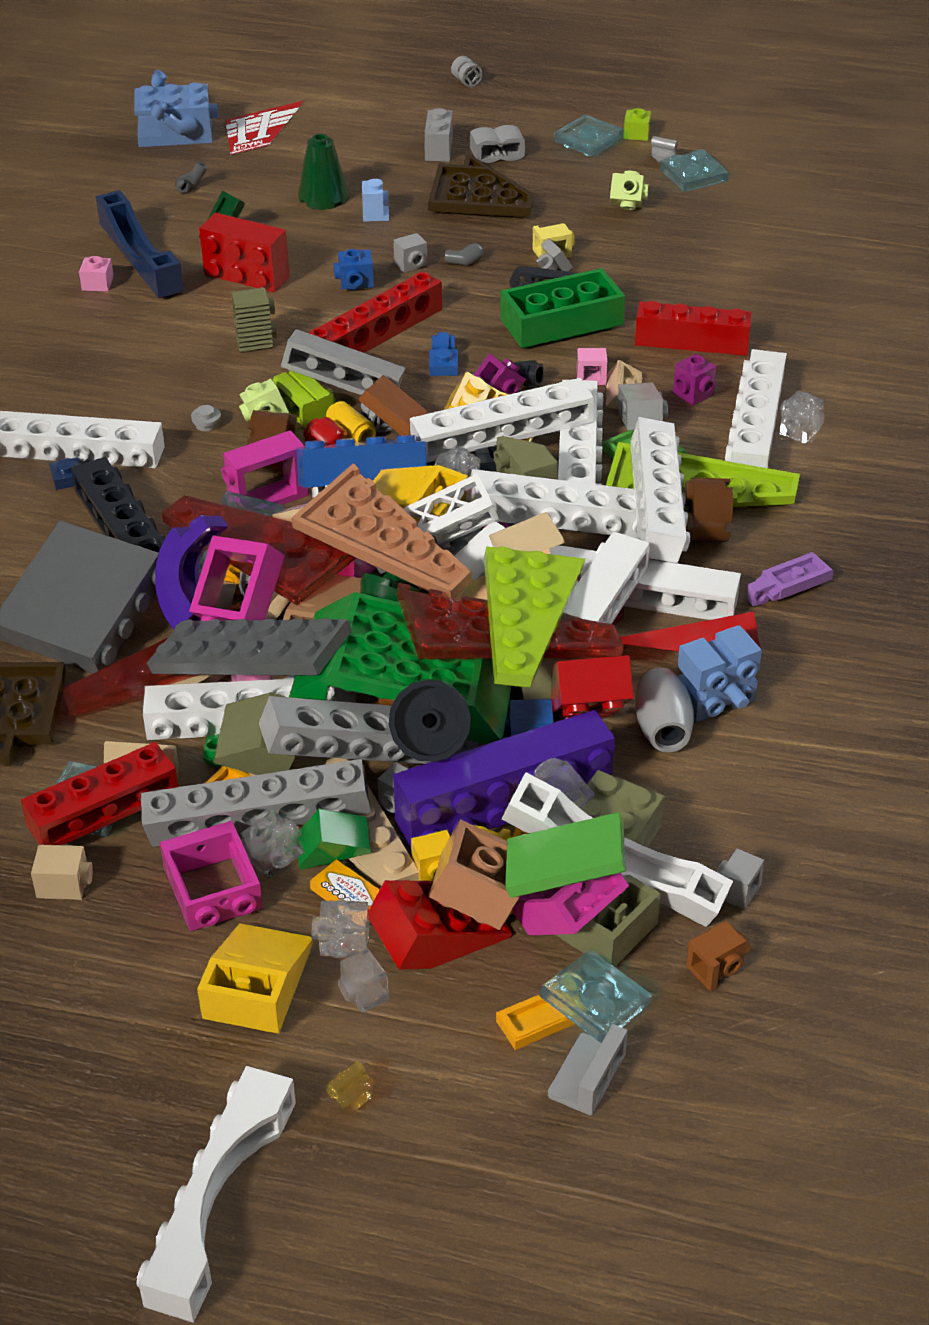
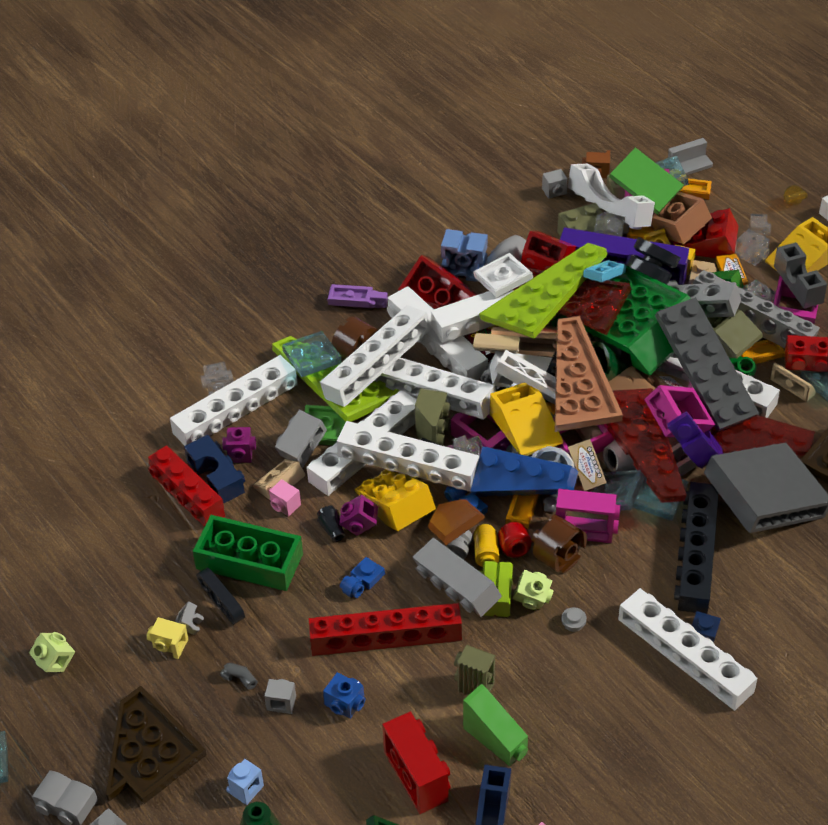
camera: 140 degrees left, 5 degrees up
(190, 848) = (807, 287): none -> dark grey arch
(202, 304) = (493, 726): none -> bright green slope
(474, 658) = (604, 271): none -> medium azure plate
(612, 620) = (503, 275): none -> white tile
(665, 350) = (206, 456): none -> dark blue arch
(741, 464) = (311, 353): none -> clear light blue plate

